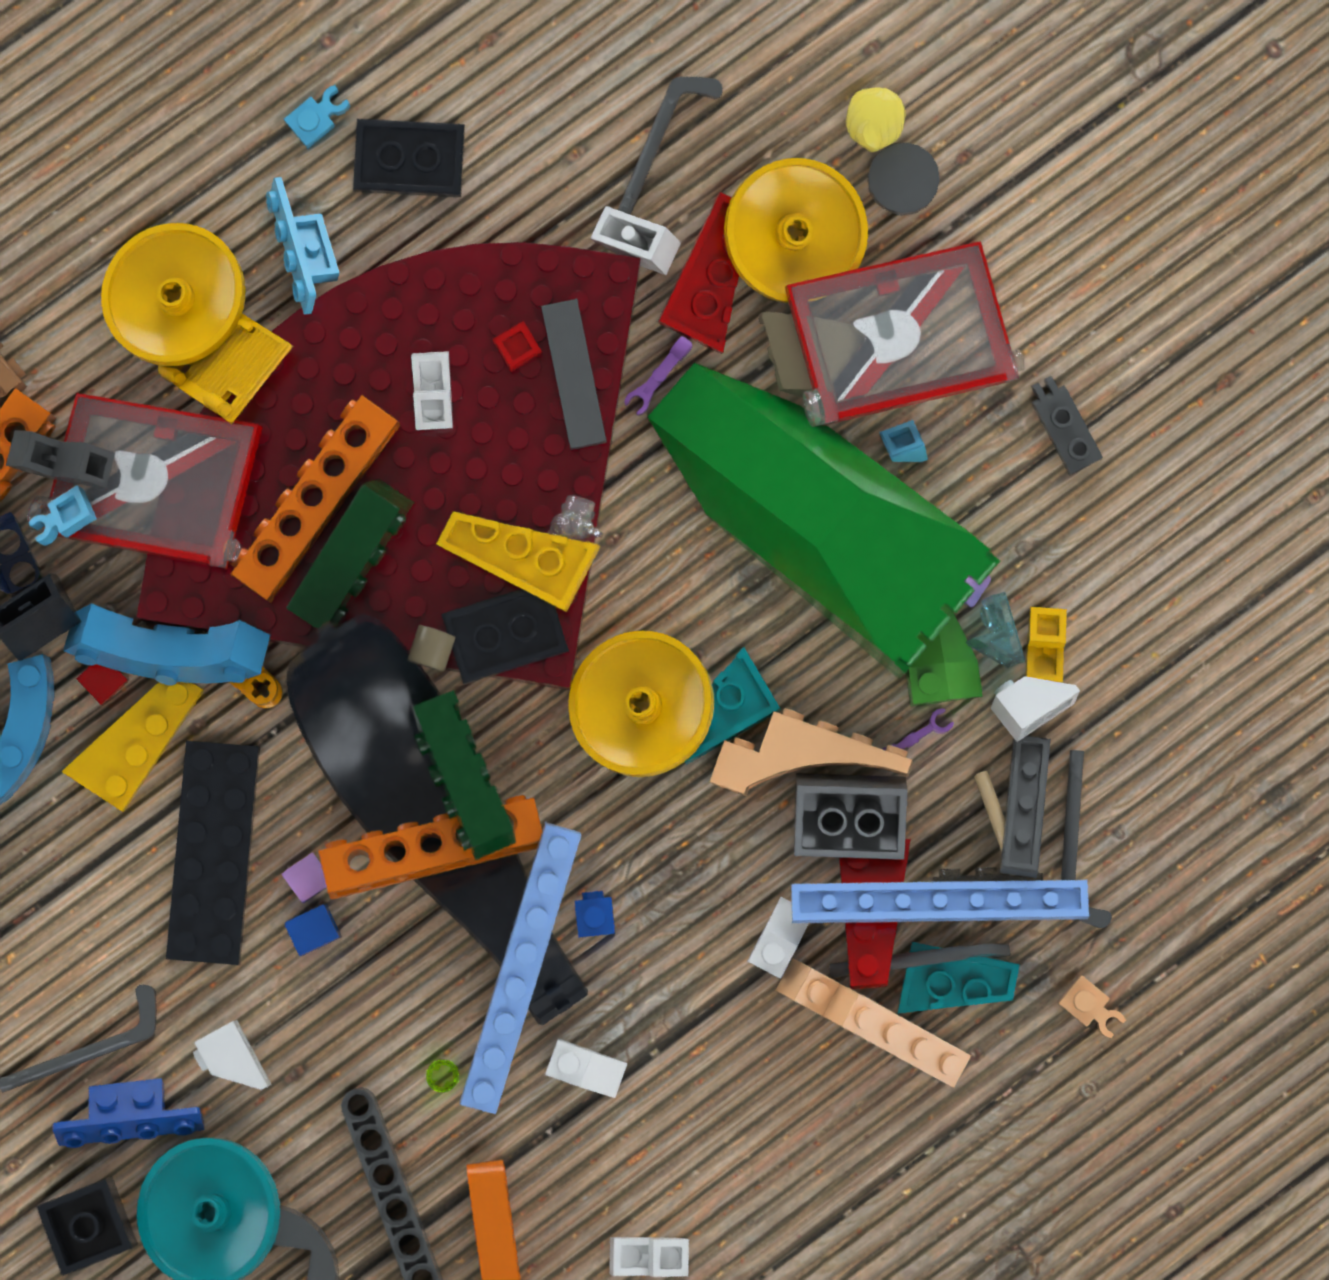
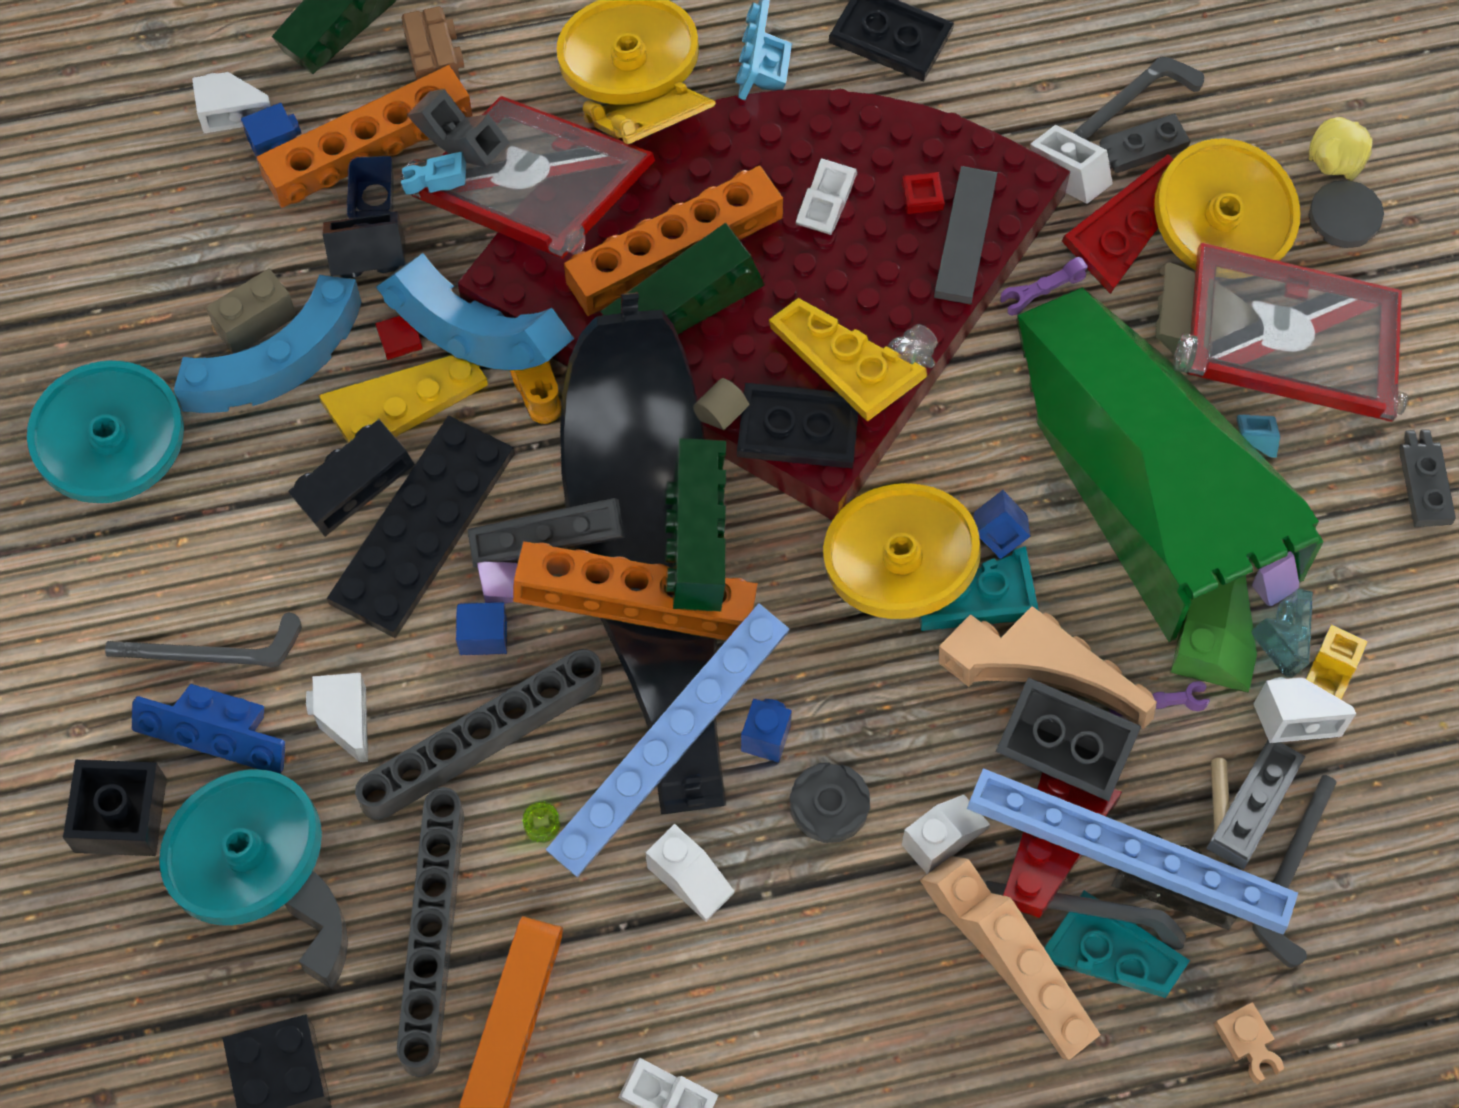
camera: 25 degrees right, 20 degrees down
(131, 841) = (351, 477): none -> black brick
(328, 821) = (560, 528): none -> dark grey tile
(341, 1034) = (473, 751): none -> dark grey beam
(673, 952) = (829, 802): none -> dark grey tile
(690, 183) = (1145, 143): none -> dark grey hinge
(715, 635) = (1002, 524): none -> blue panel

